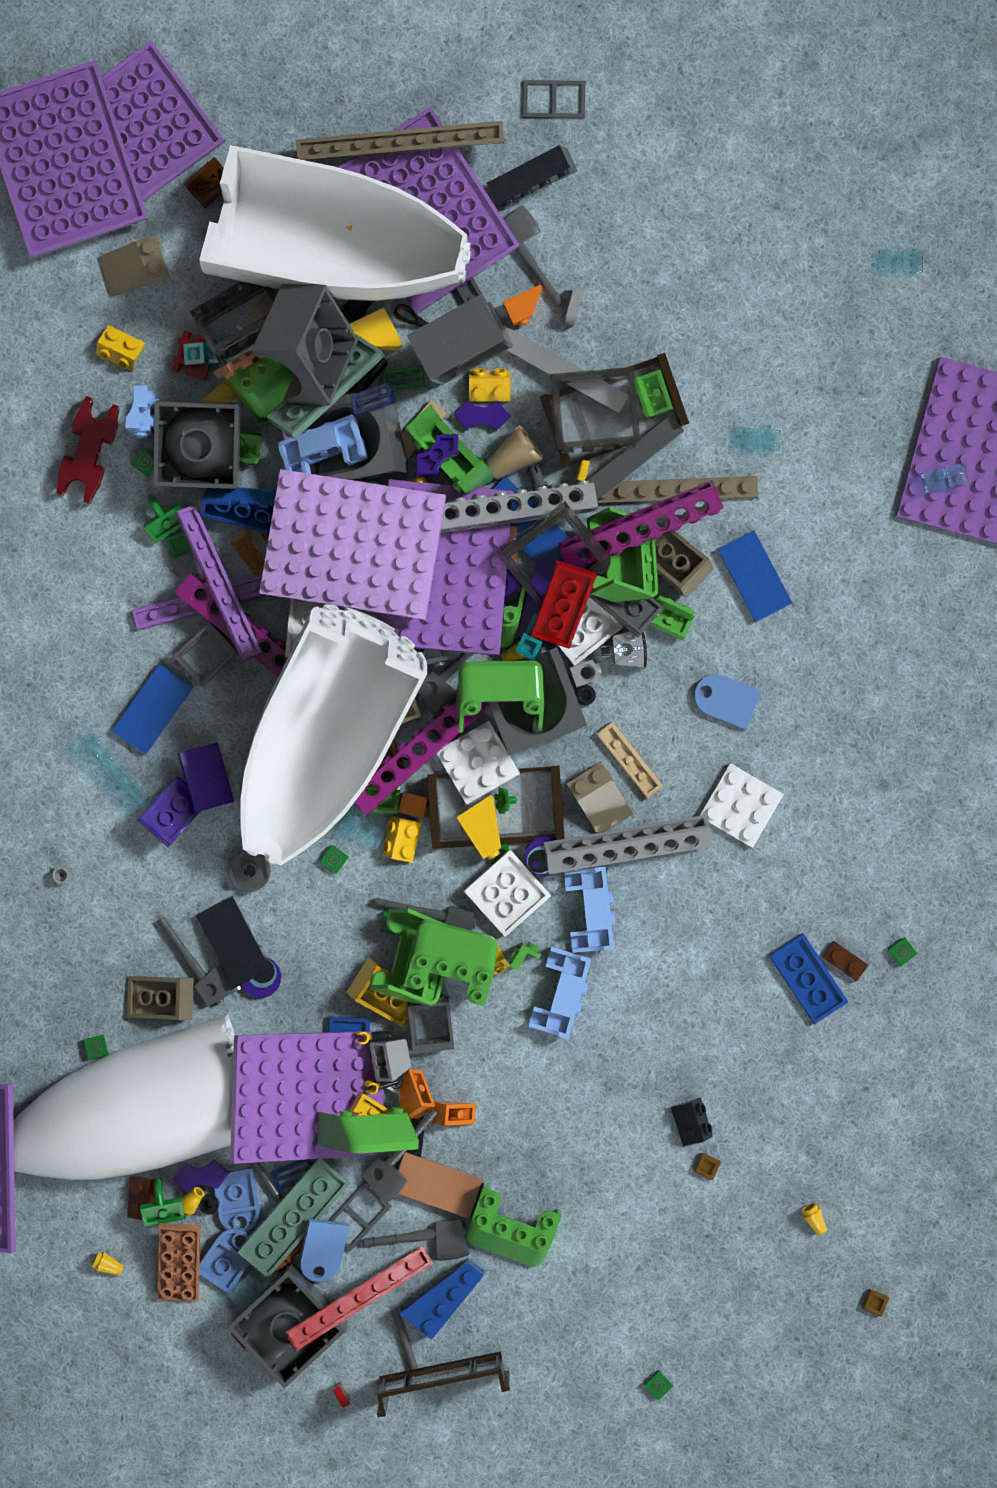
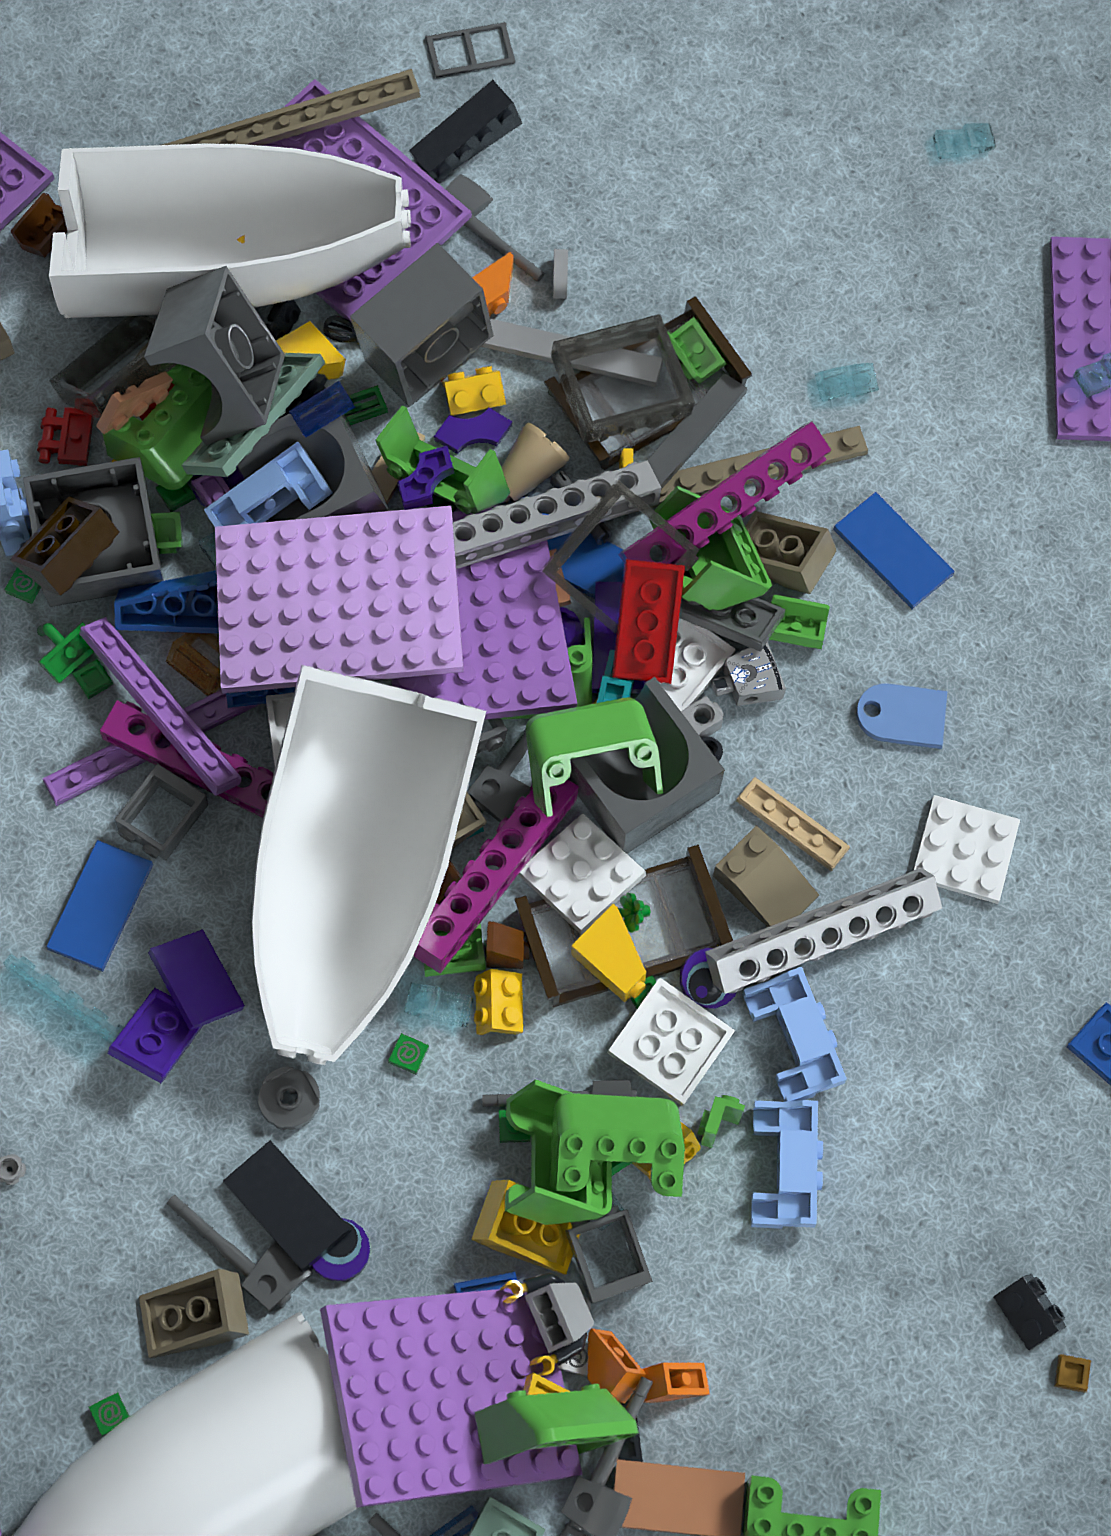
camera: 15 degrees left, 20 degrees down
(174, 460) = (65, 545): none -> dark brown slope
(199, 354) = (74, 428): teal slope -> none

